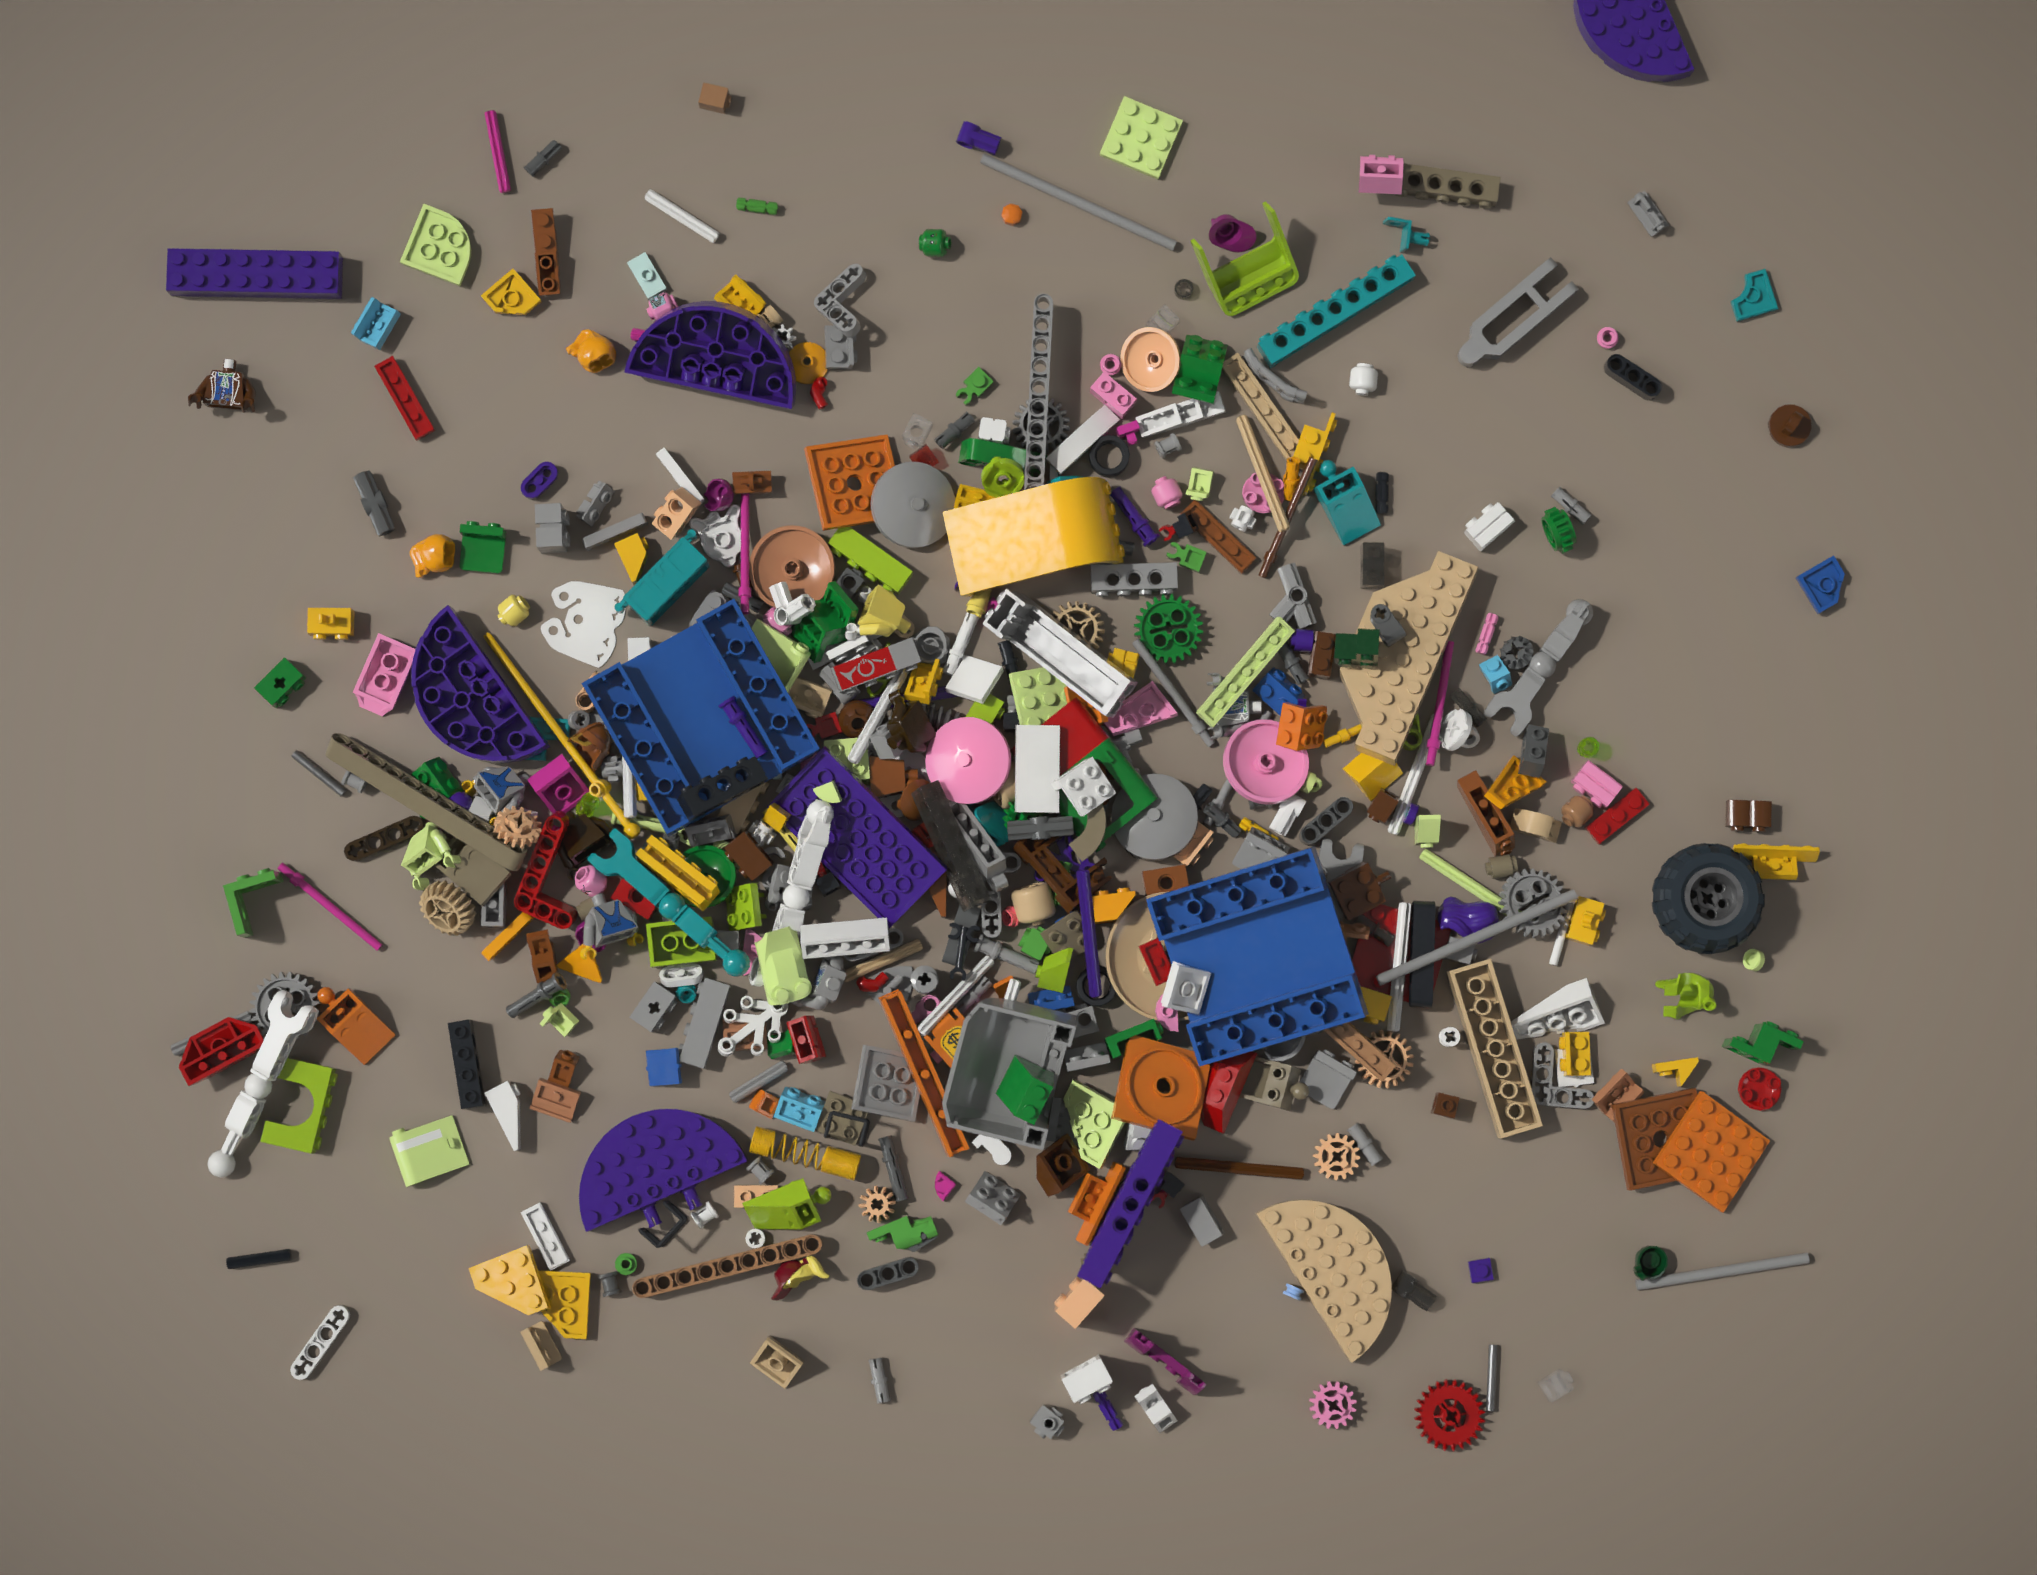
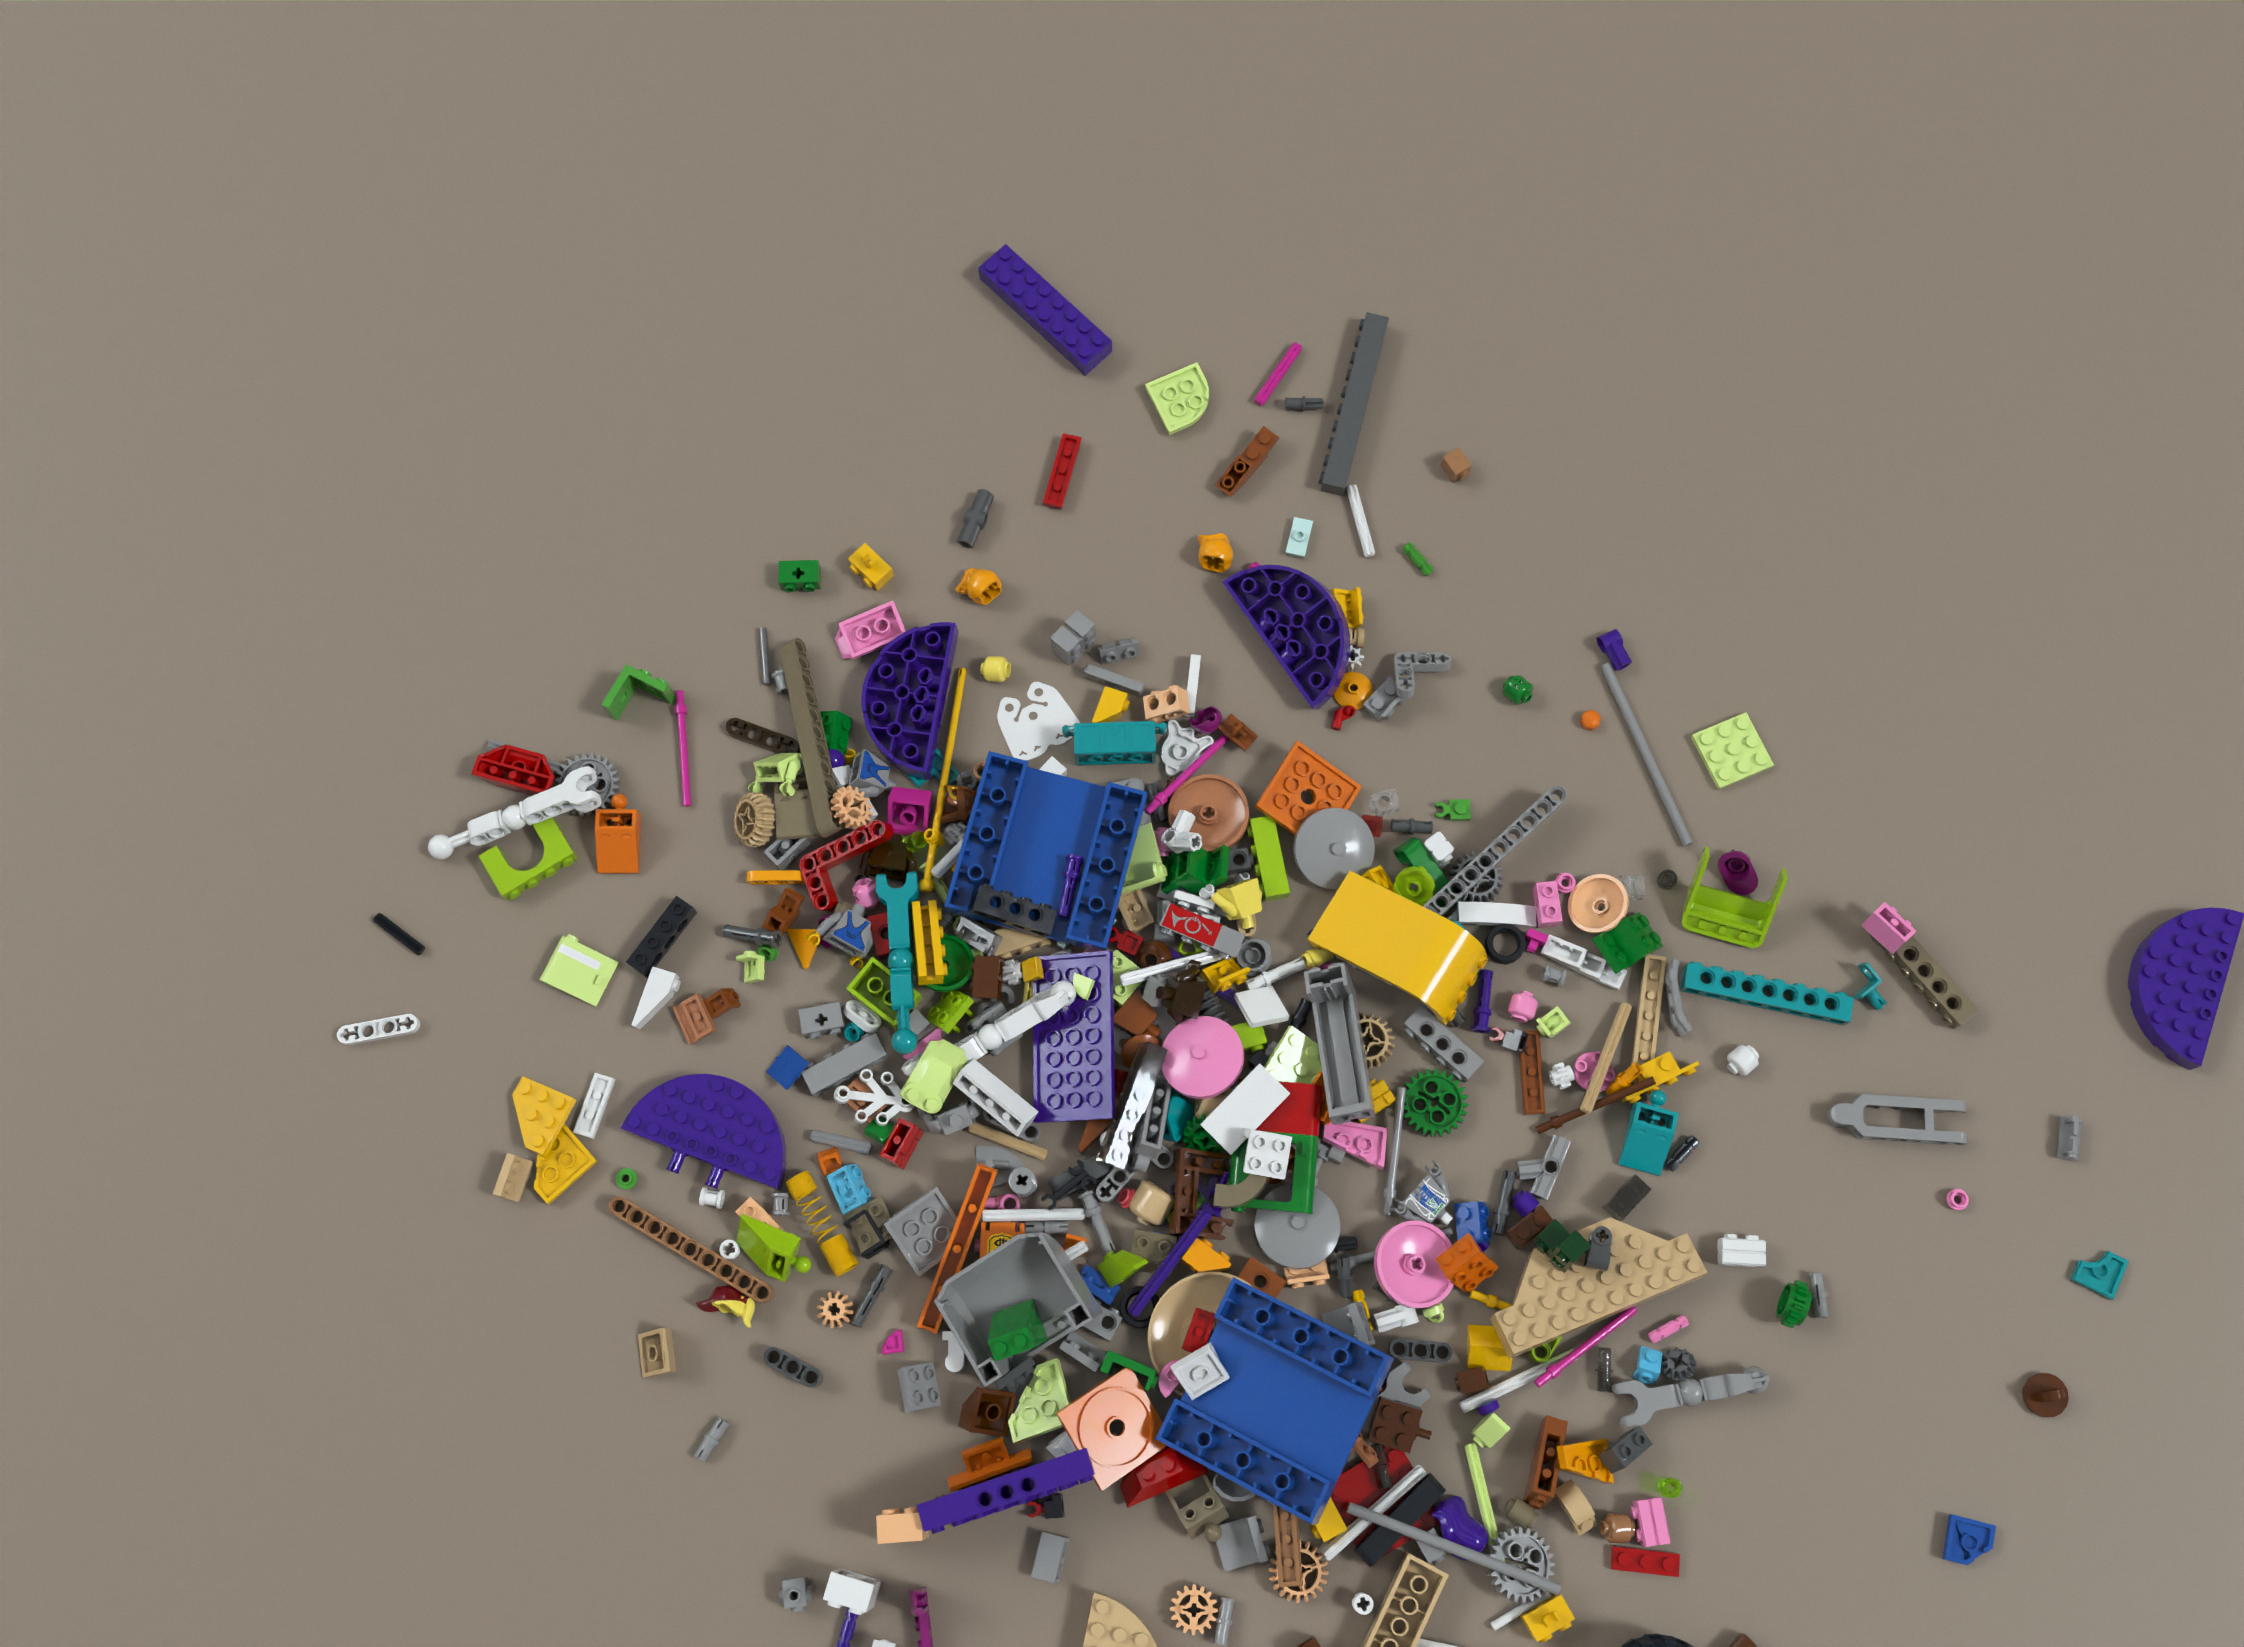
camera: 50 degrees right, 10 degrees down
(225, 389) = (952, 362): reddish brown torso -> none
(375, 323) = (1090, 407): medium azure bracket -> none
(482, 547) = (1017, 610): green bracket -> none
(511, 295) = (1196, 469): yellow plate -> none
(538, 479) = (1097, 602): dark purple plate -> none
(584, 120) = (1354, 404): none -> dark grey brick
(610, 1283) = (601, 1181): dark grey bush -> none
(660, 305) = (1290, 560): bright pink head -> none
(682, 1220) = (681, 1186): black piece -> none
(826, 882) = (1023, 1049): black piece -> none
(872, 985) = (984, 1151): red arm -> none
(907, 1234) = (833, 1351): bright green plate -> none
(1033, 943) = (1123, 1232): bright green brick -> none
(1040, 828) = (1206, 1153): dark grey piece -> none
(1190, 557) = (1497, 1067): bright green plate -> none
(1239, 1168) = (1115, 1545): reddish brown axle -> none
(1245, 671) = (1461, 1184): yellowish green plate -> none
(1456, 729) = (1579, 1377): white tile -> none
(1637, 387) = (1948, 1256): black beam -> none

